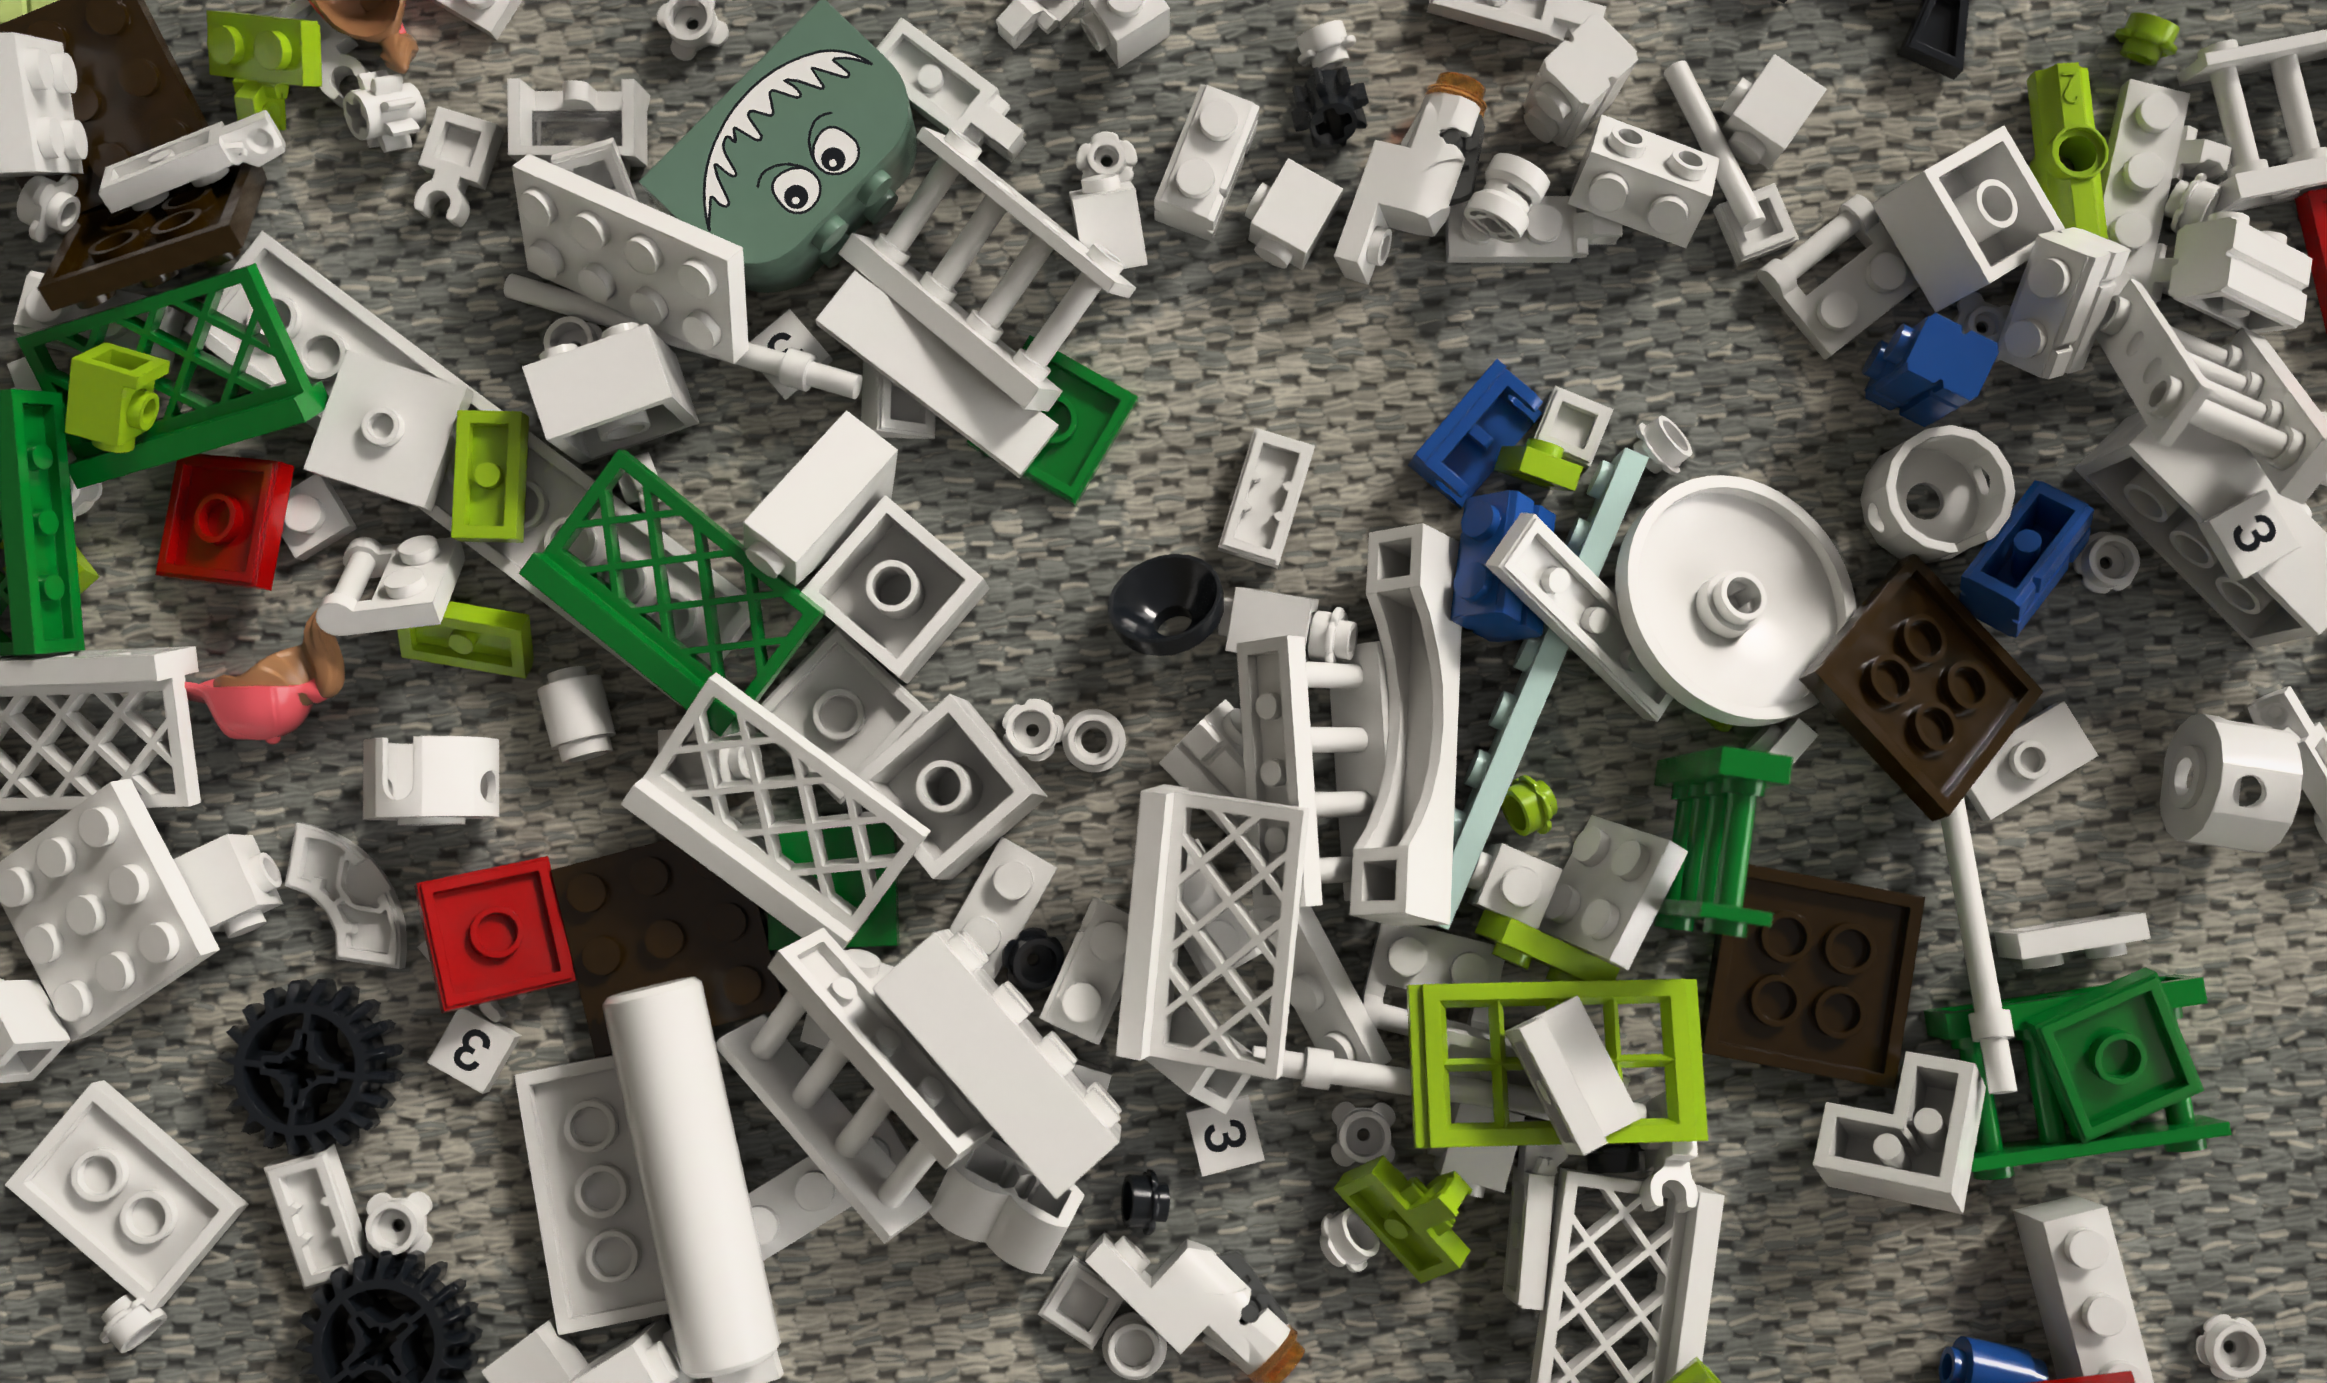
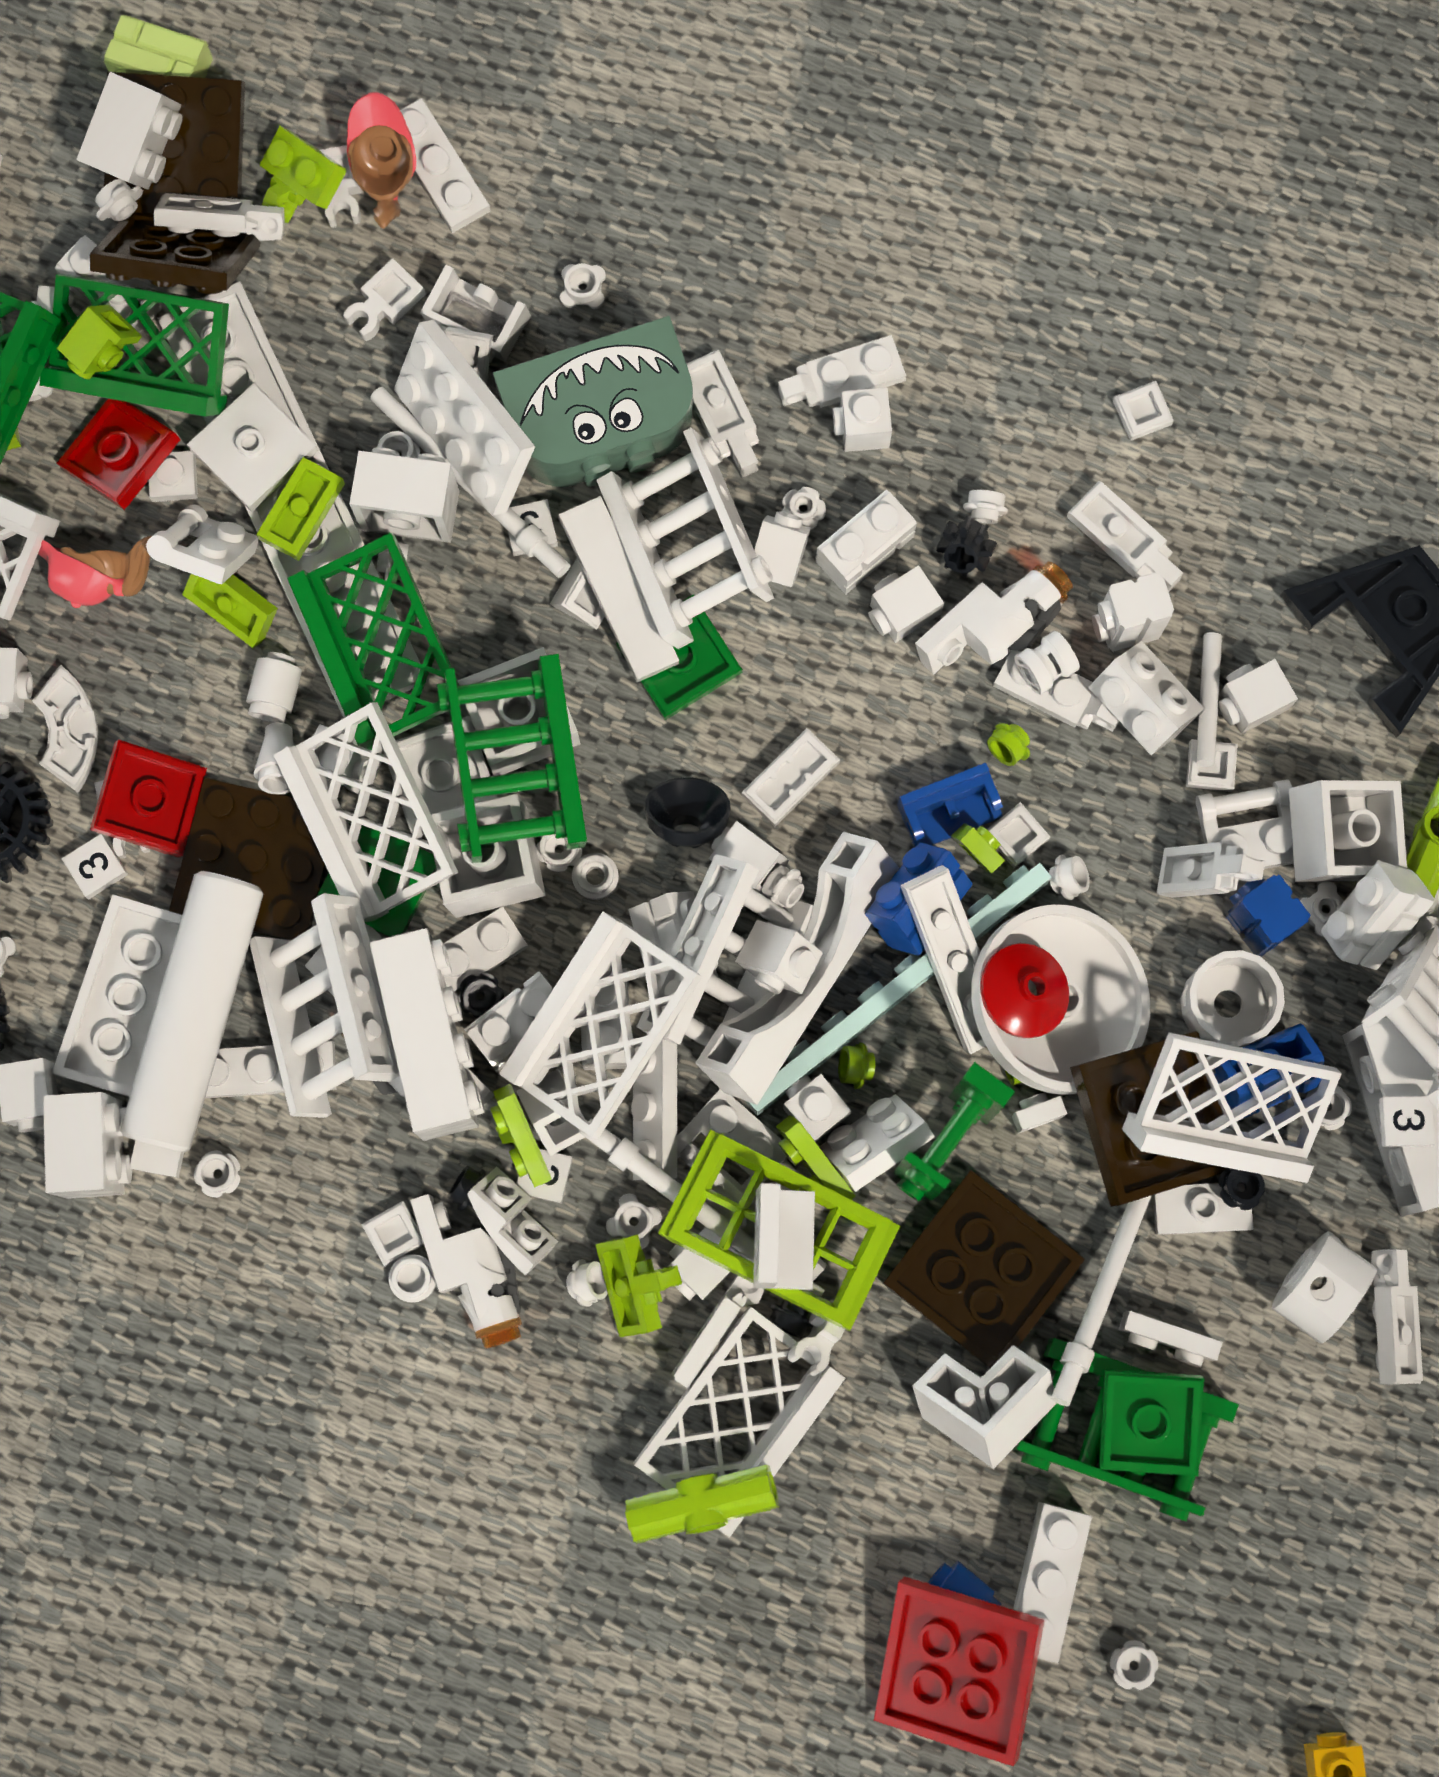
camera: 30 degrees right, 5 degrees down
(384, 111) = (357, 244): white gear -> none
(431, 780) = (161, 684): white piece -> none
(616, 777) = (267, 771): none -> white cone
(820, 501) = (500, 629): white slope -> none
(824, 1362) = (205, 1173): none -> white plate
(952, 594) = (556, 776): none -> green fence
(1002, 1203) = (379, 1138): white brick -> none
(1163, 1101) = (515, 1129): none -> lime hinge
(1228, 1225) = (501, 1211): none -> white slope
(1379, 730) = (778, 958): none -> white brick
(1505, 322) = (1009, 744): none -> lime plate
(1681, 626) = (1007, 991): none -> red dish
(1831, 352) = (1206, 870): none -> white hinge
(2026, 673) = (1213, 1141): none -> white fence
(2079, 705) = (1244, 1199): none -> black plate

